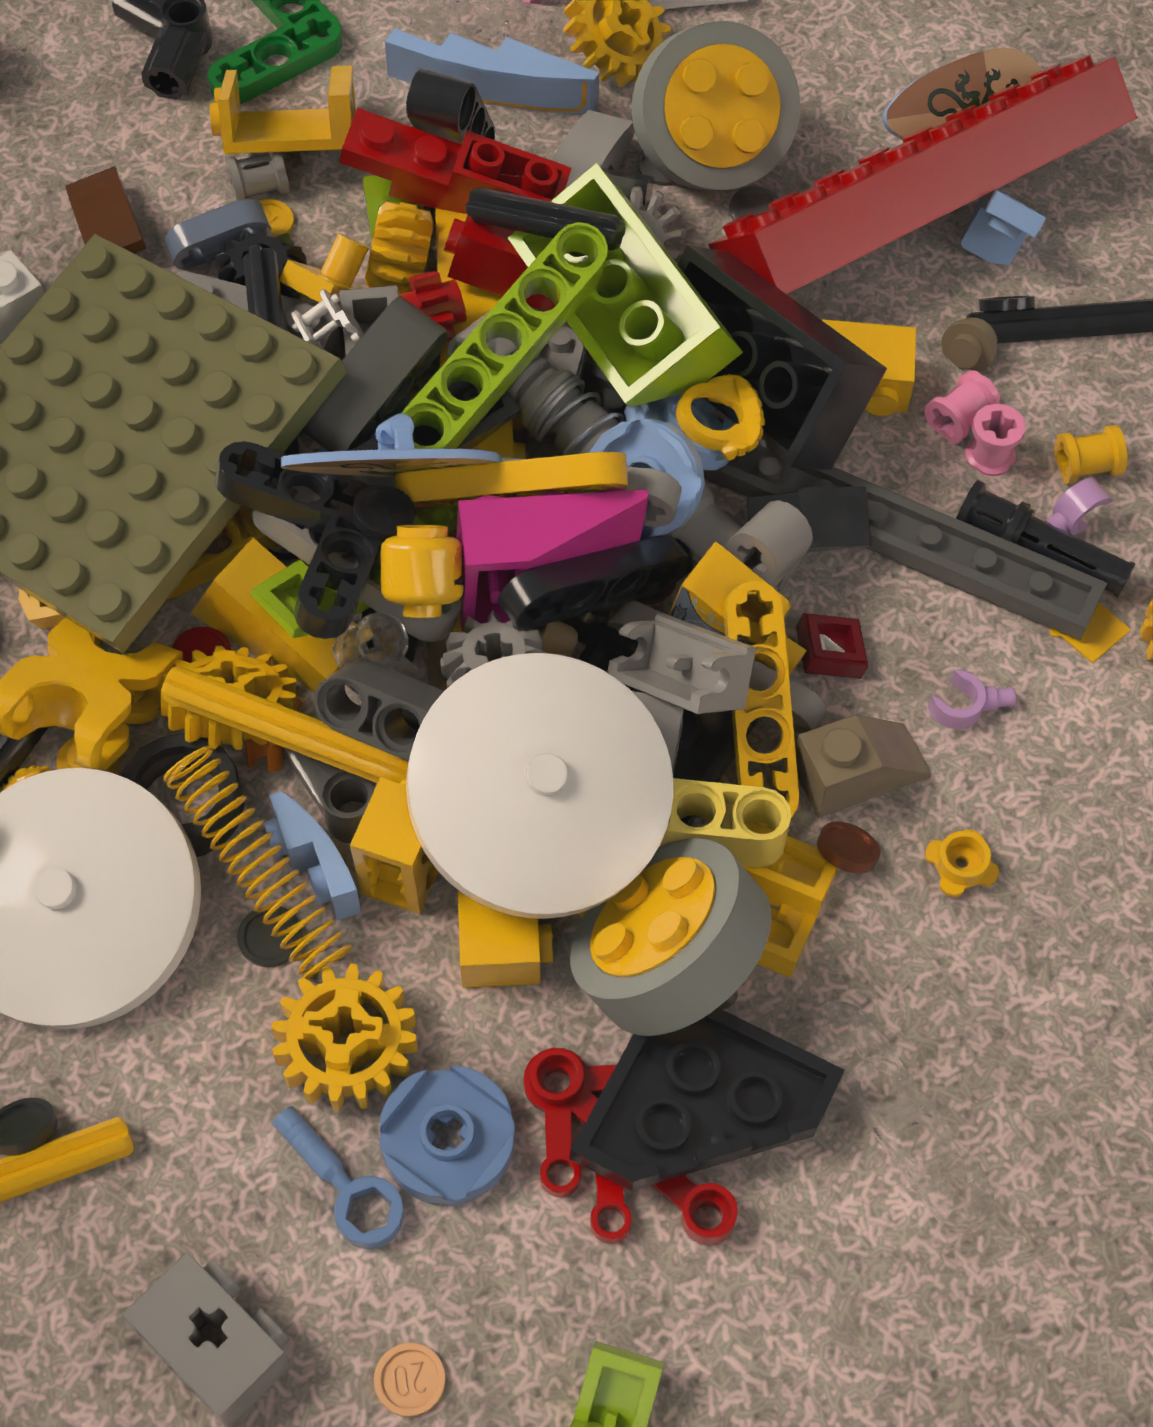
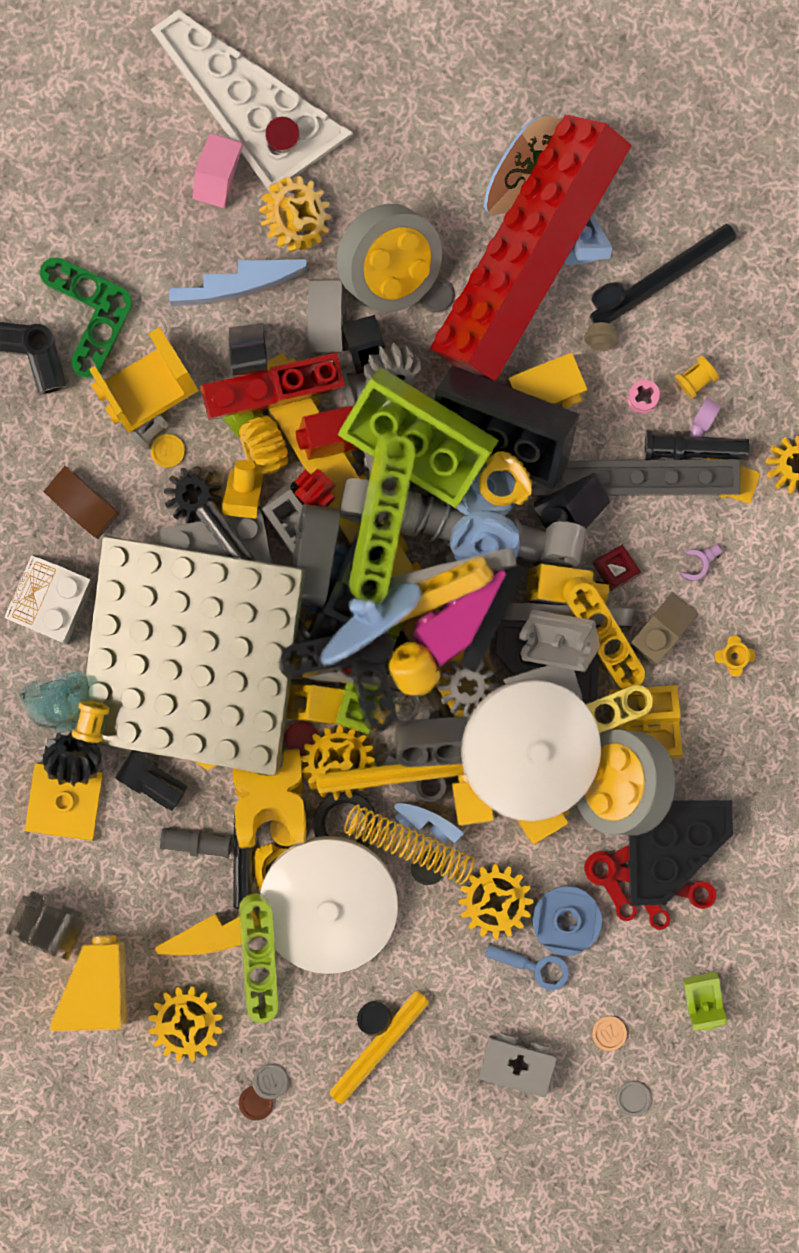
camera: 25 degrees left, 25 degrees up
(204, 236) = (153, 482): sand blue beam -> none
(340, 318) = (265, 522): white piece -> none
(538, 216) = (358, 423): black axle -> none
(848, 847) = (677, 677): copper piece -> none
(956, 411) = (616, 381): bright pink bush -> none

